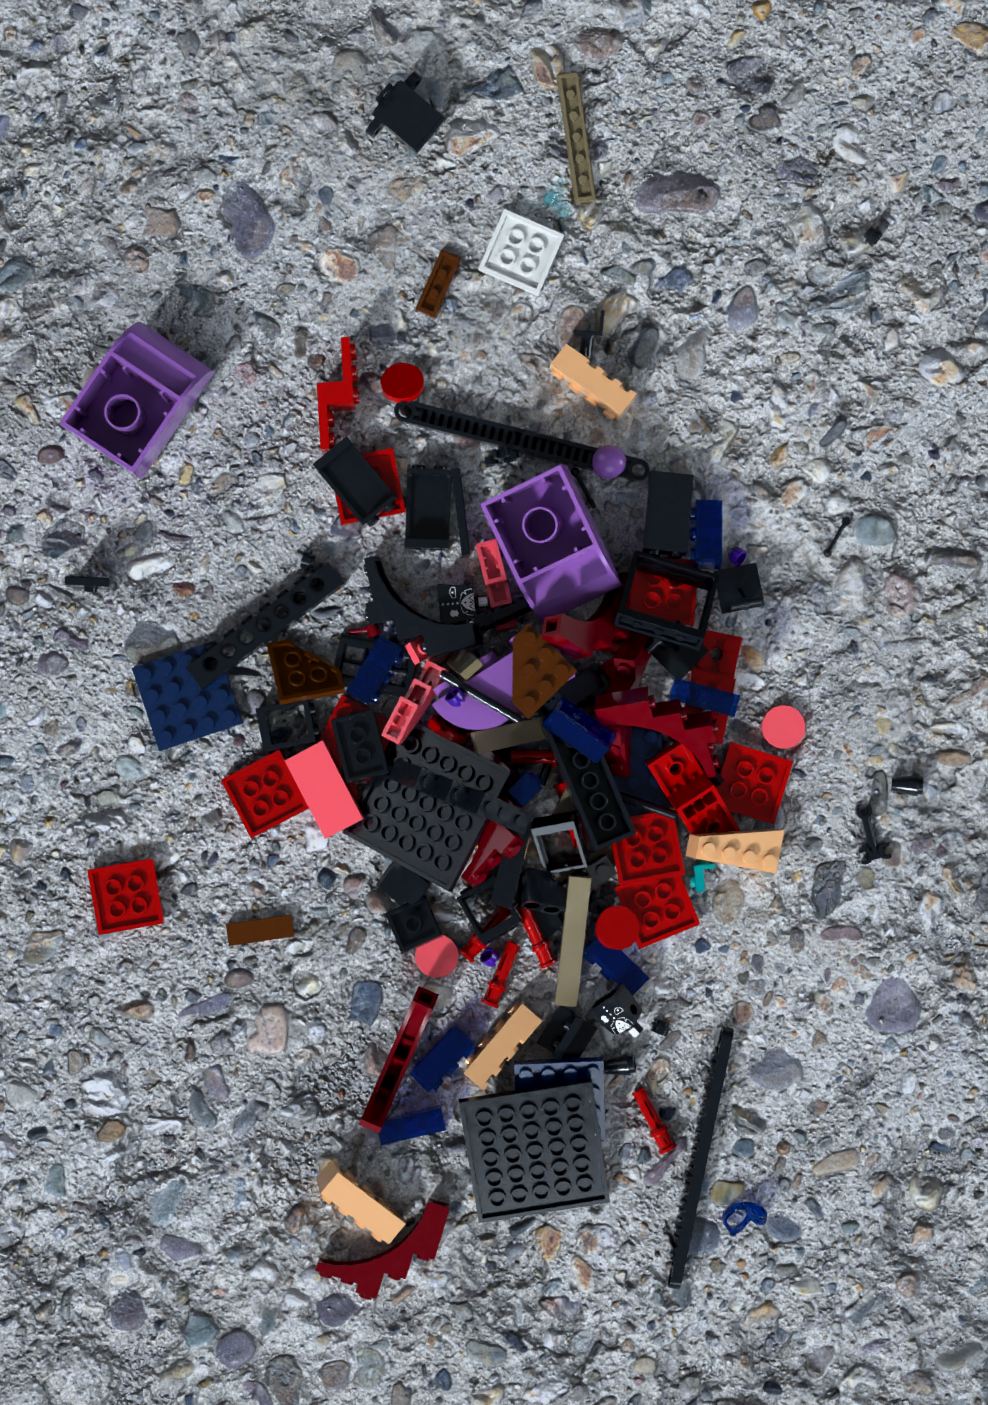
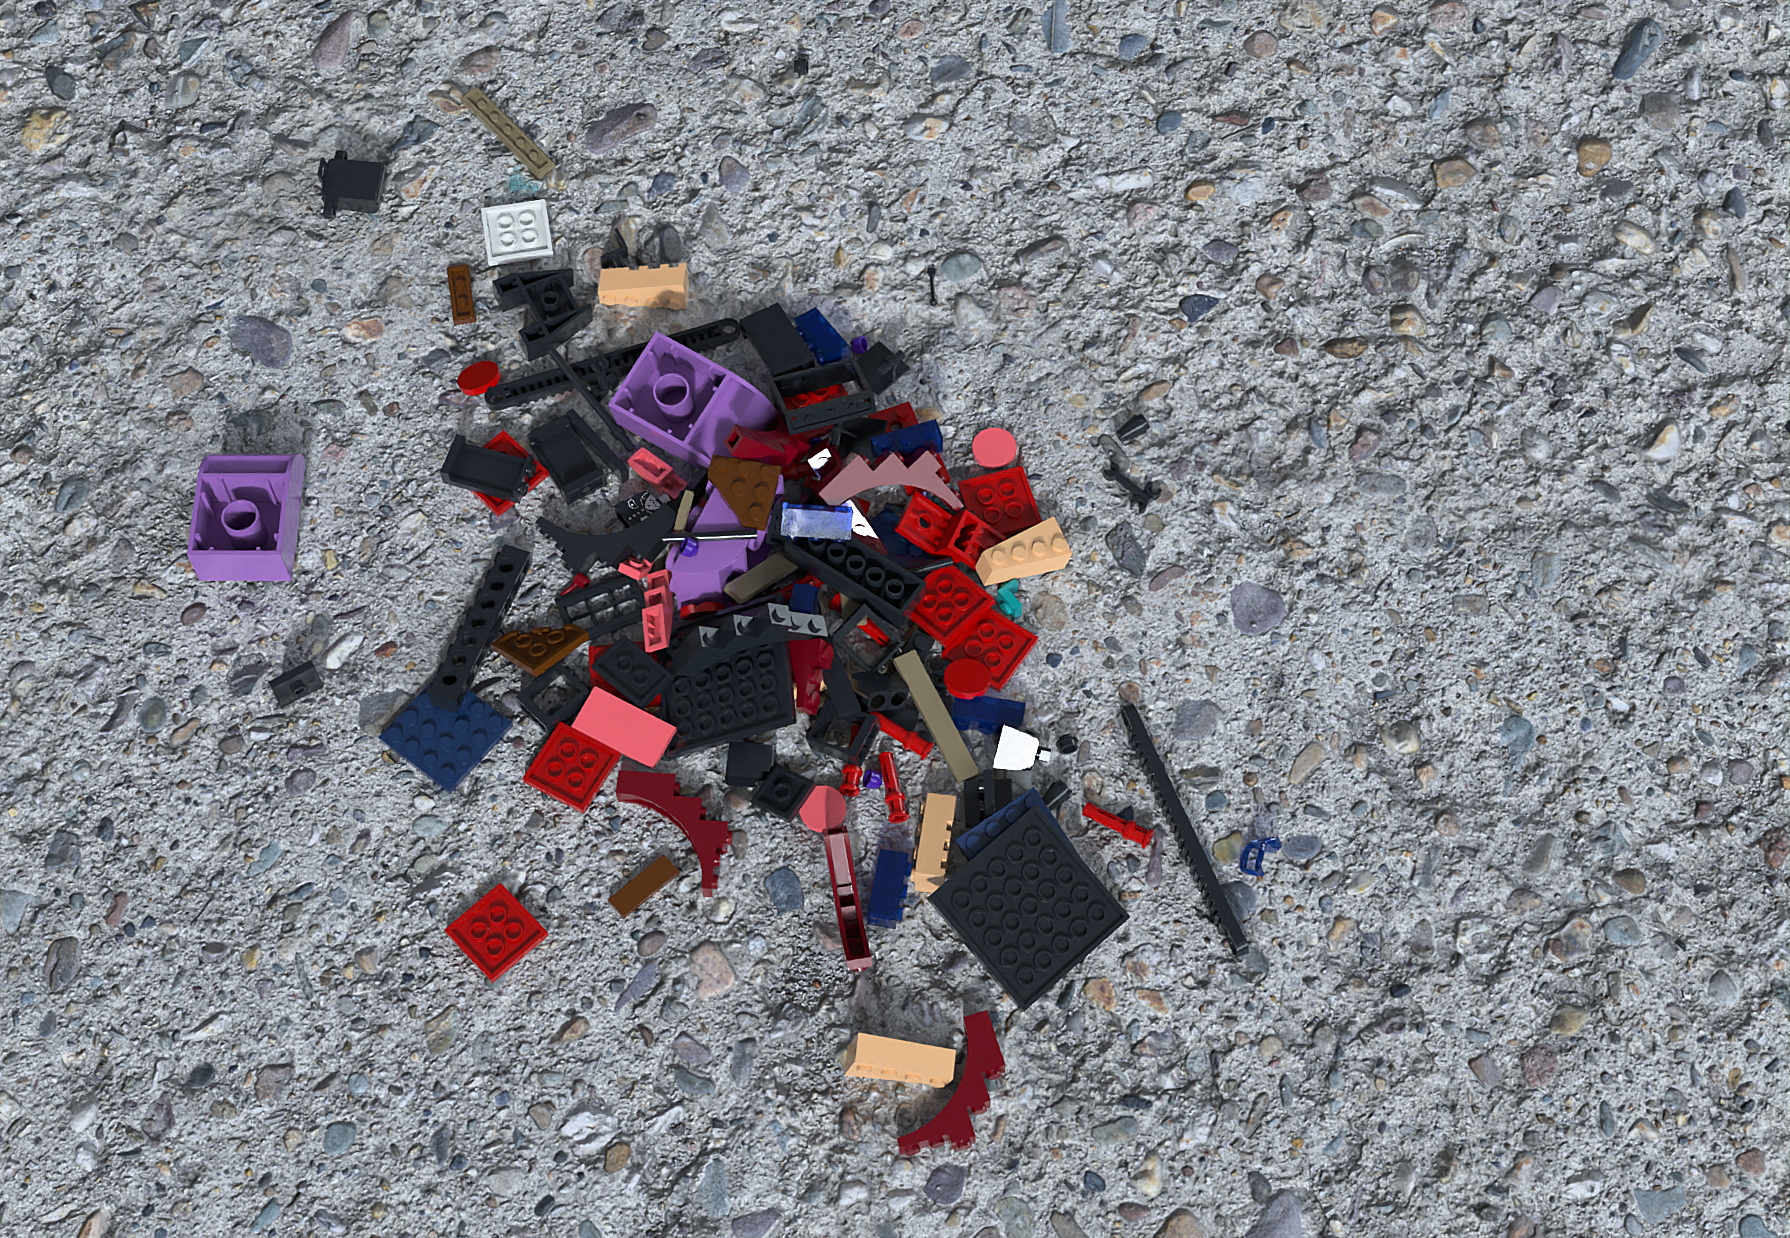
camera: 30 degrees left, 25 degrees down
(307, 560) = (485, 559): black plate -> none
(331, 924) = (662, 794): none -> dark red arch
(337, 395) = (426, 413): red bracket -> none
(376, 671) = (606, 604): clear blue brick -> none
(412, 1125) = (900, 963): clear blue brick -> none
(480, 458) = (616, 430): none -> black bar
(501, 350) = (549, 305): none -> black wedge
(608, 461) = (698, 332): medium lavender hair -> none

